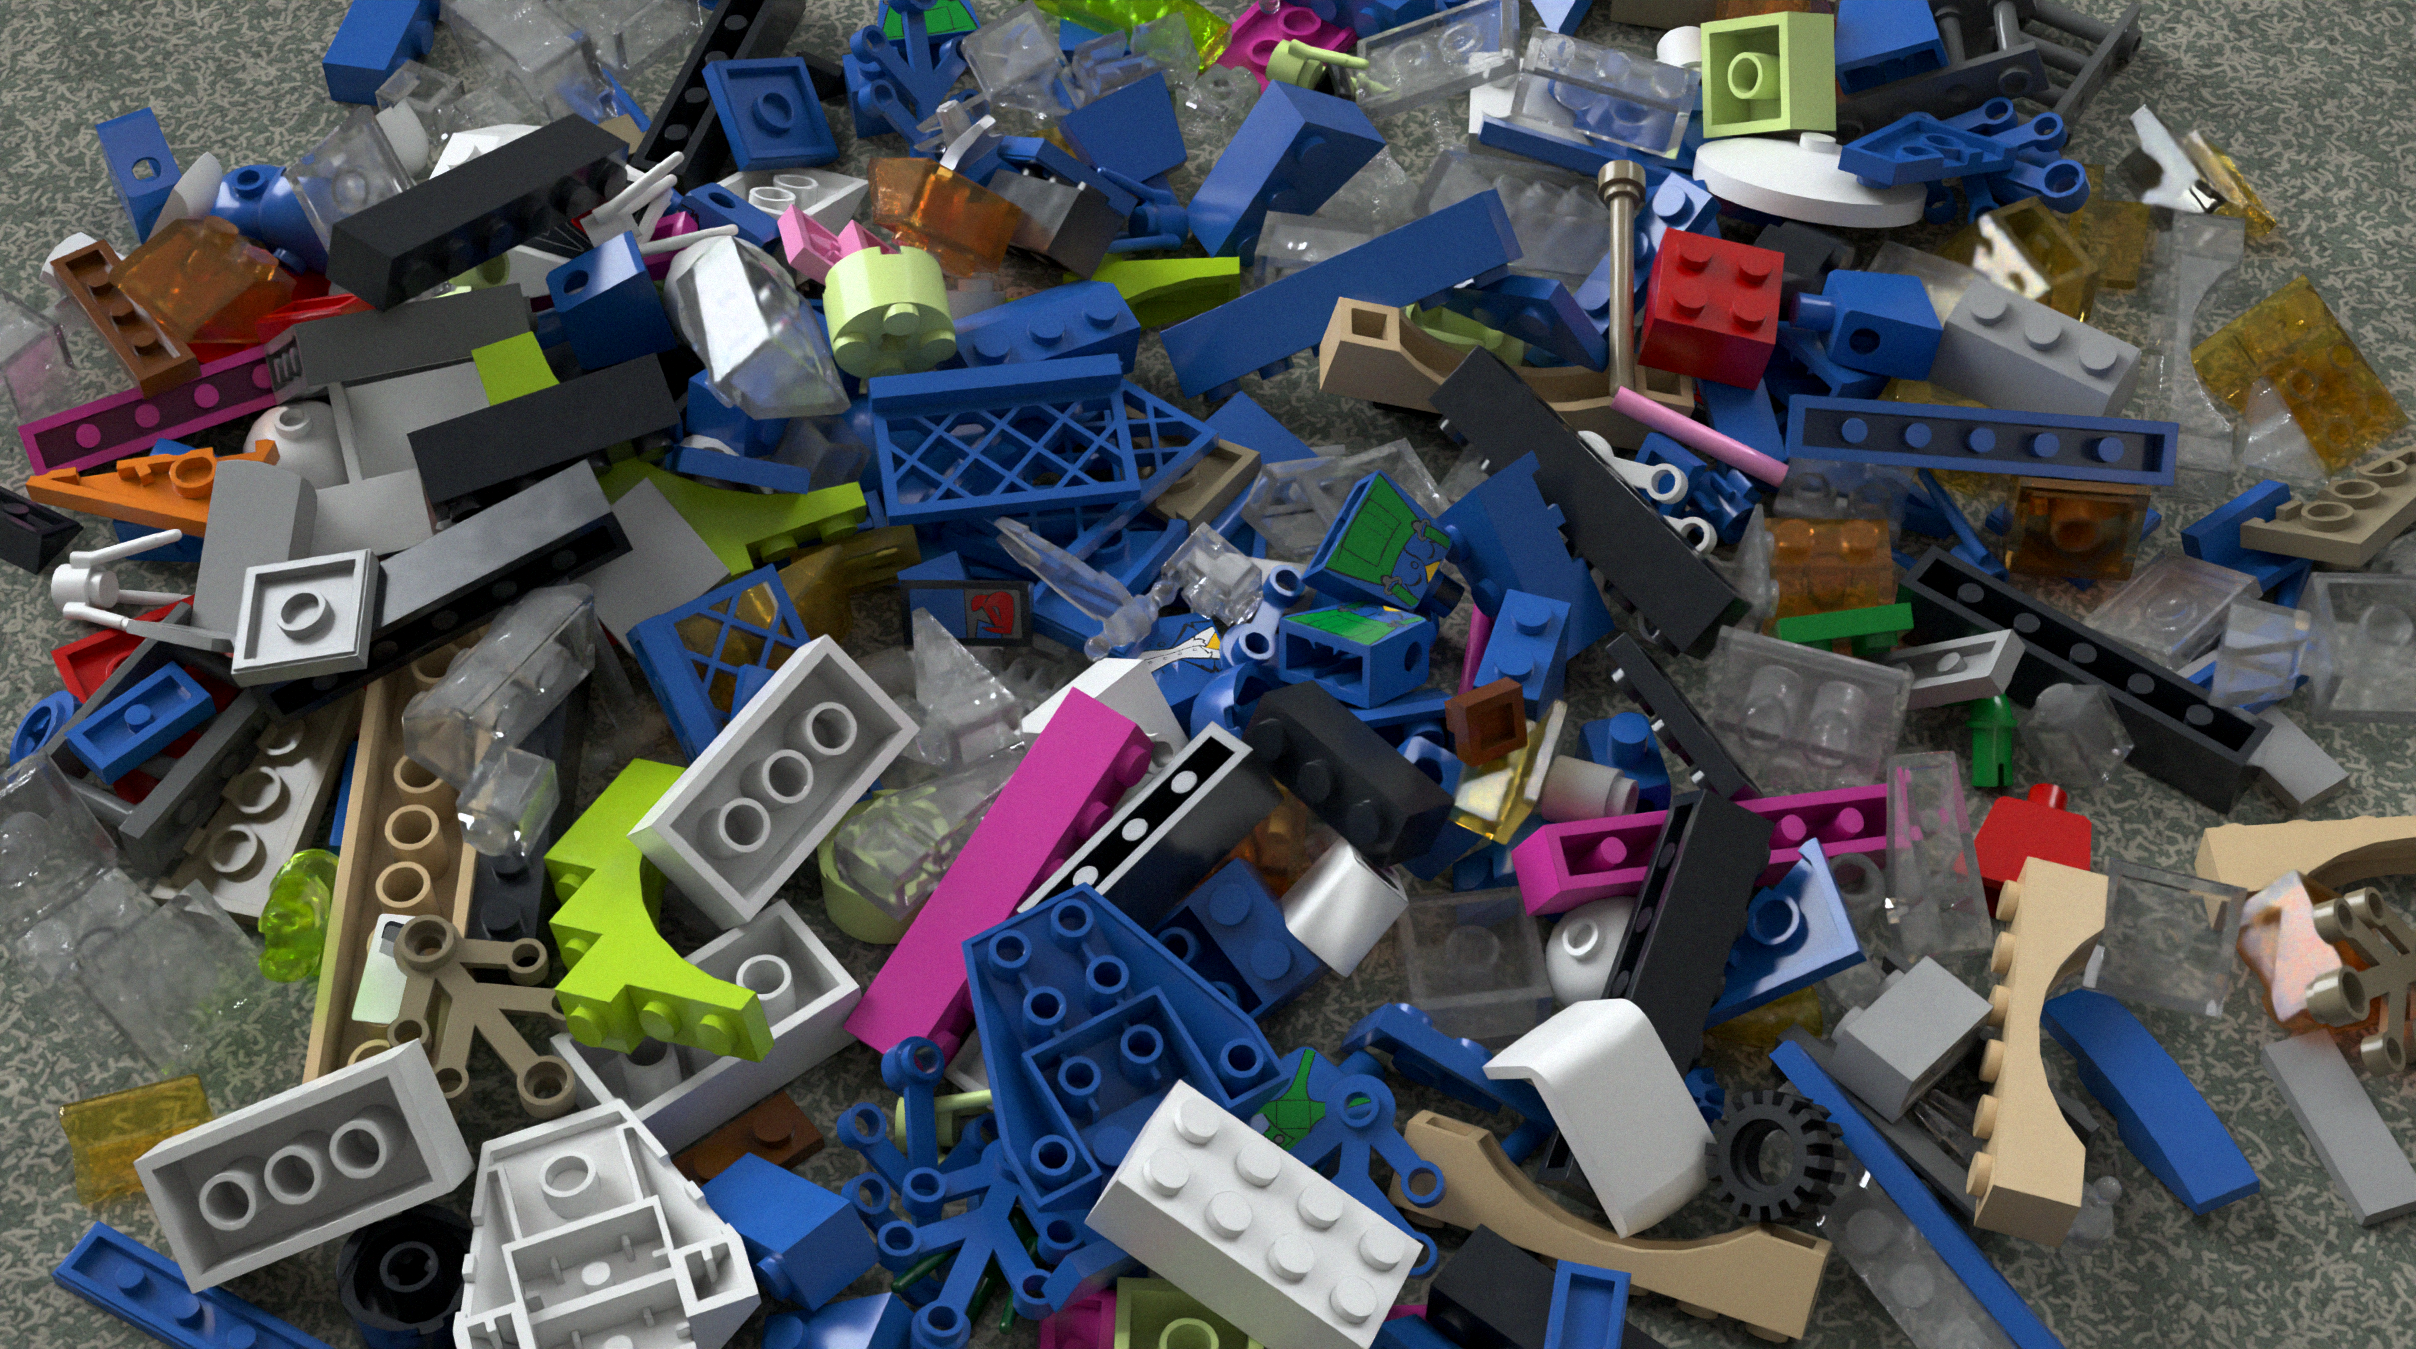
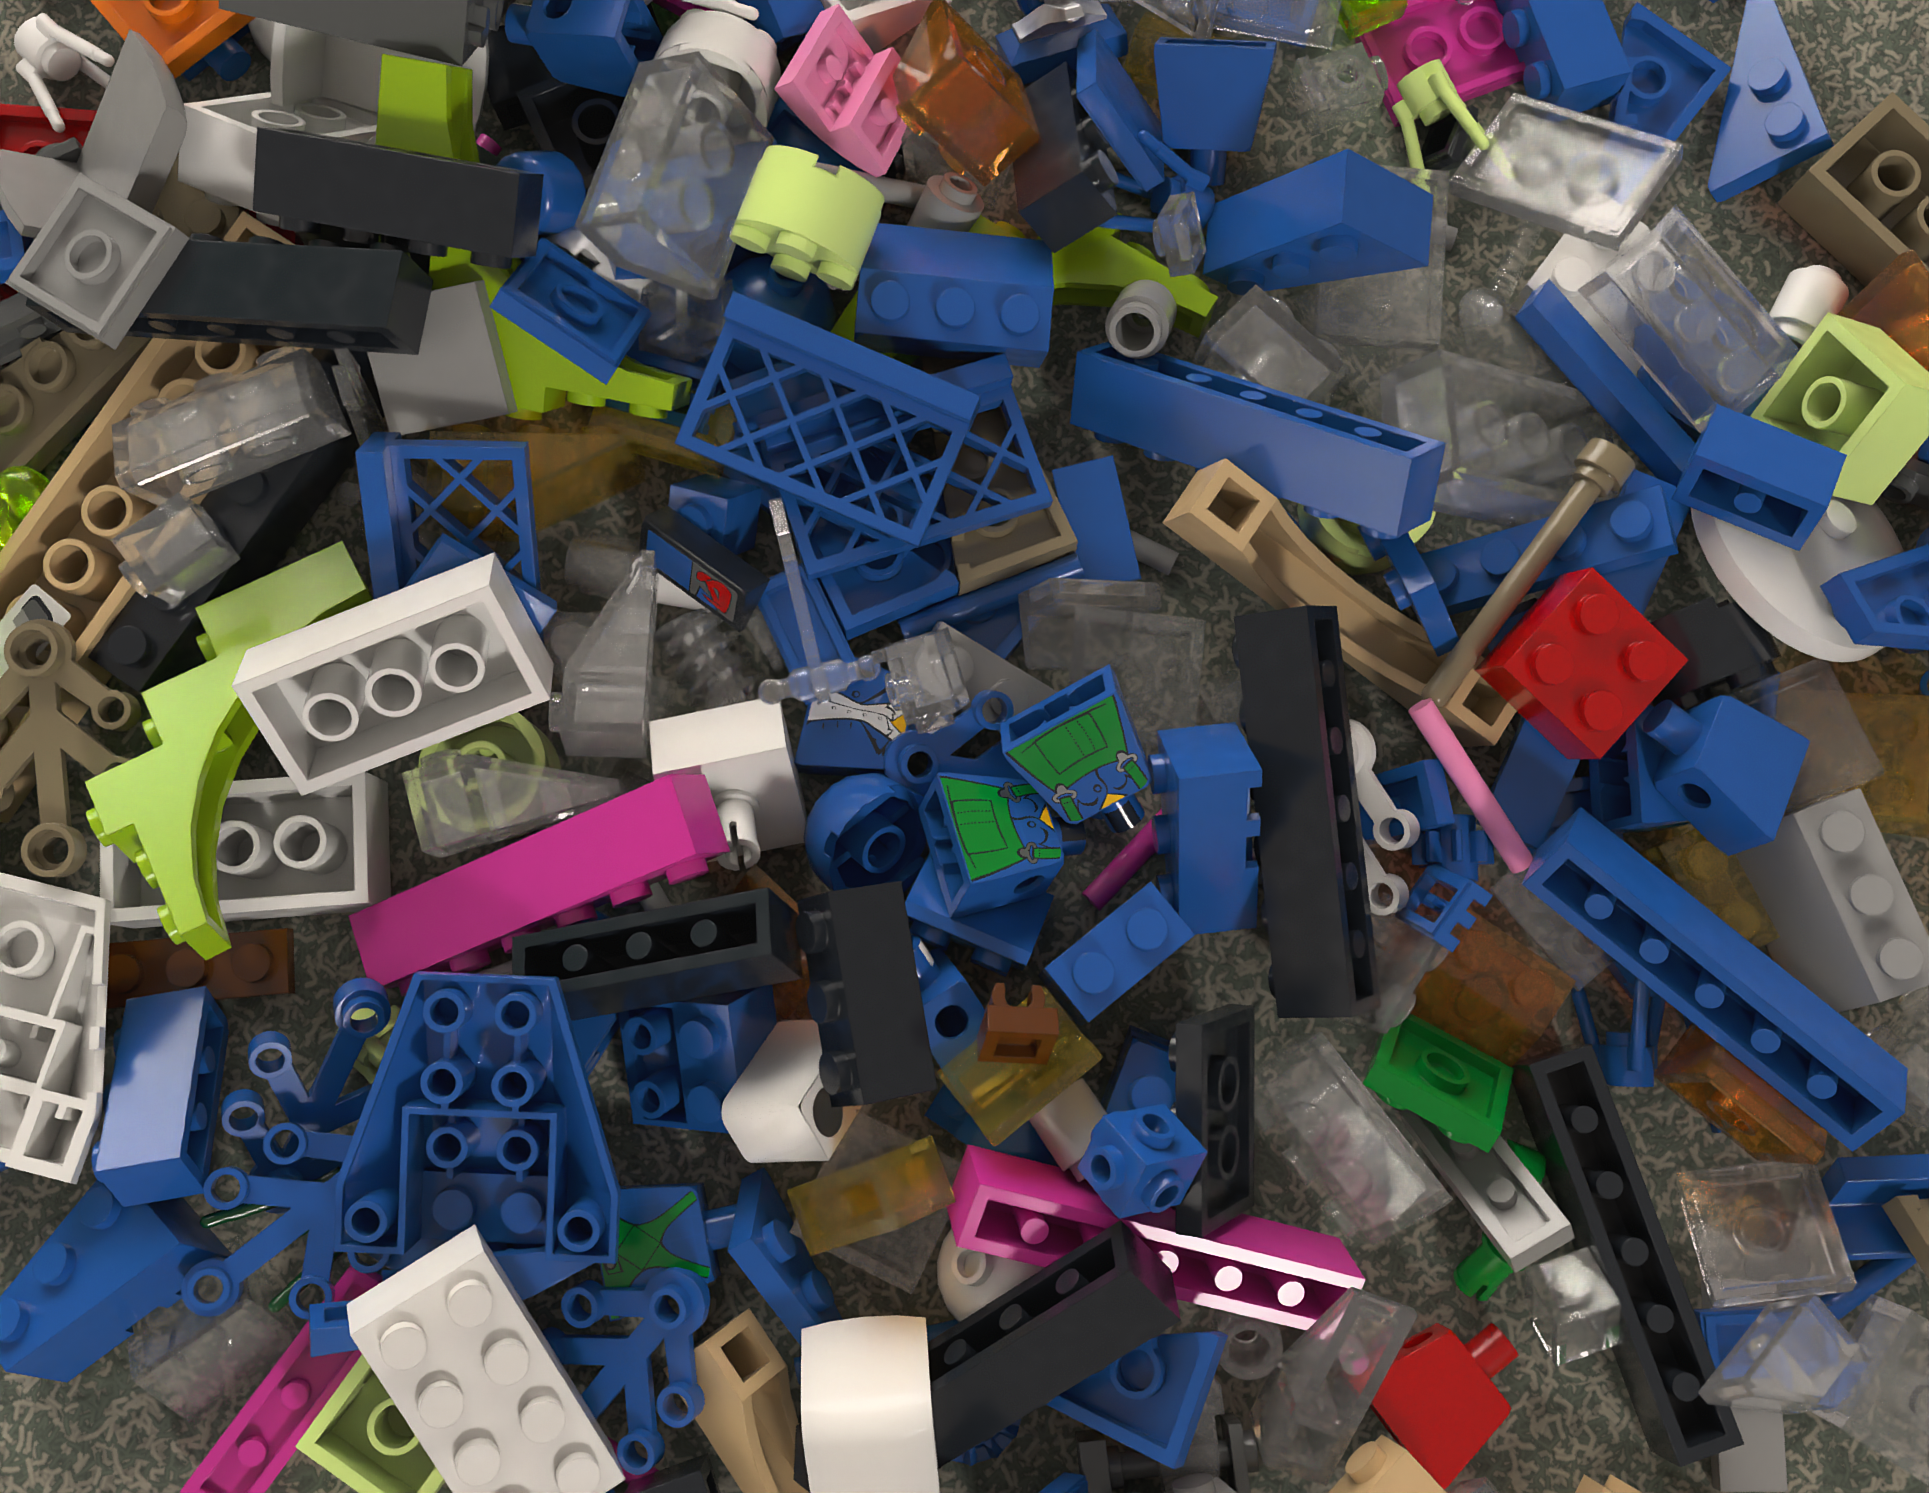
camera: 30 degrees right, 30 degrees up
(1176, 230) = (1179, 234): none -> clear plate
(1200, 270) = (1131, 333): none -> light grey brick
(1460, 927) = (871, 1196): none -> clear yellow slope
(1654, 746) = (1141, 1160): none -> blue brick
(1737, 130) = (1759, 477): none -> blue brick
(1742, 504) = (1450, 912): none -> blue tile

